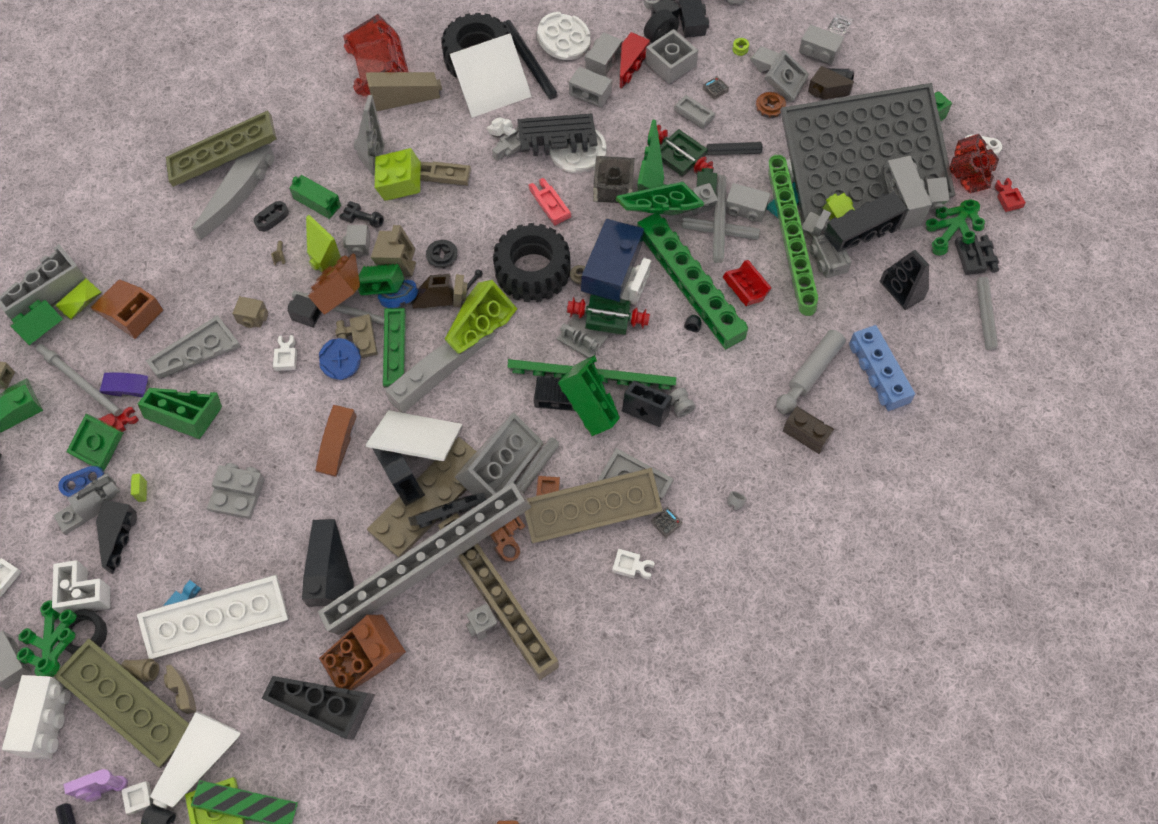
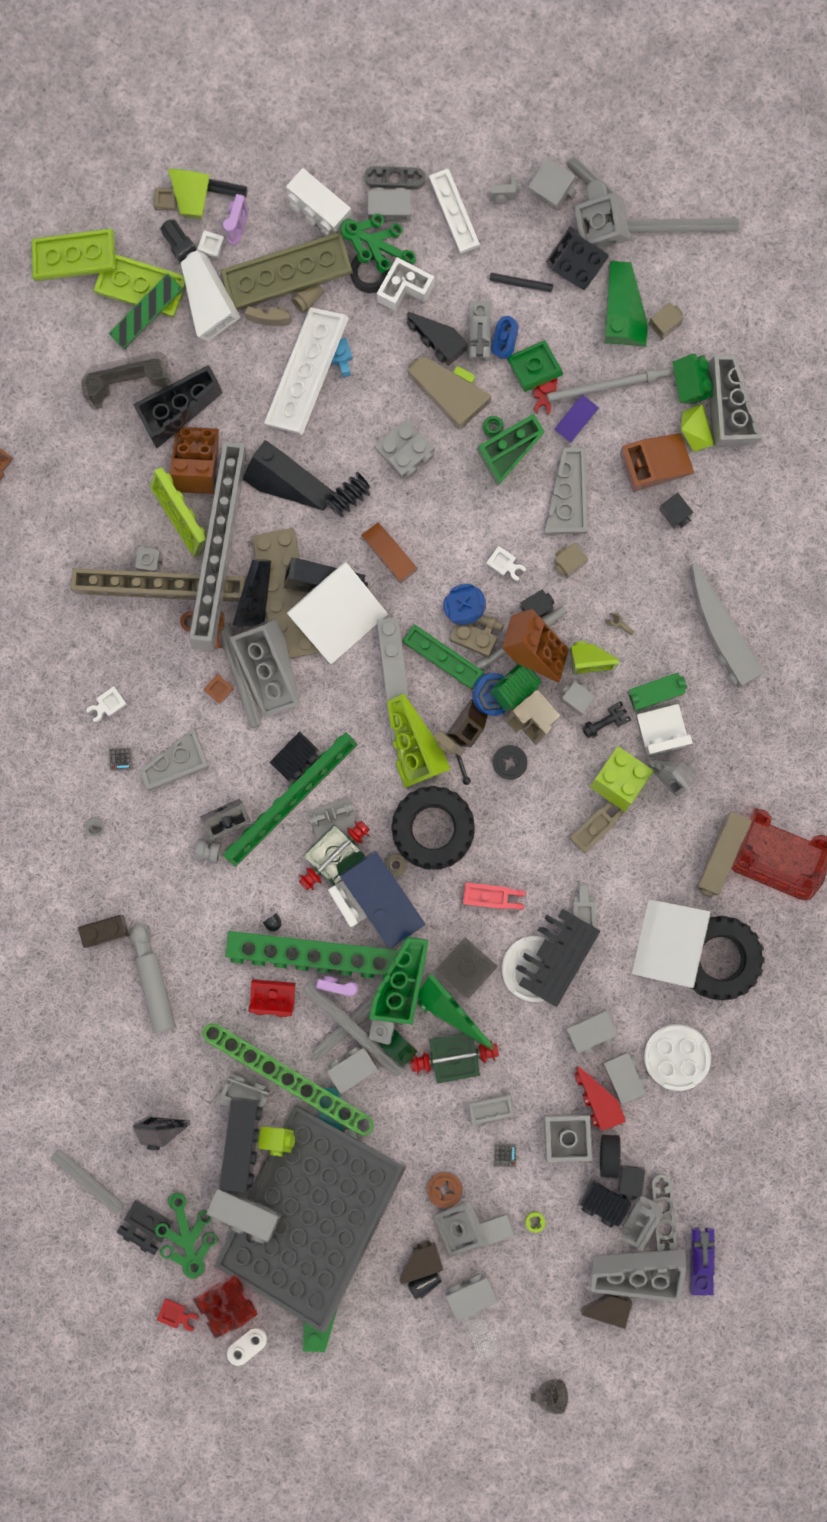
camera: 135 degrees right, 20 degrees up
(21, 505) = (520, 282): none -> black bar
(159, 269) = (676, 511): none -> black brick
(160, 491) = (448, 391): none -> dark tan slope
(166, 436) = (493, 420): none -> green plate
(220, 148) = (771, 639): olive plate -> none
(271, 216) = (672, 641): black beam -> none
(306, 504) = (348, 495): none -> black piece
(337, 796) = (99, 377): none -> clear smoke windscreen
(343, 174) = (663, 730): none -> white bracket
(420, 626) = (176, 510): none -> lime plate
(501, 126) = (609, 913): white plate -> none
(531, 62) = (677, 1004): black axle -> none
(588, 397) = (265, 774): green wedge -> none
(592, 505) = (174, 709): dark tan plate -> none
(700, 243) = (330, 984): none -> lavender plate
(734, 148) = (422, 1112): black axle -> none
(816, 224) = (278, 1108): light grey bracket -> none
(881, 368) = (108, 1041): medium blue brick -> none
(938, 191) = (225, 1241): light grey brick -> none

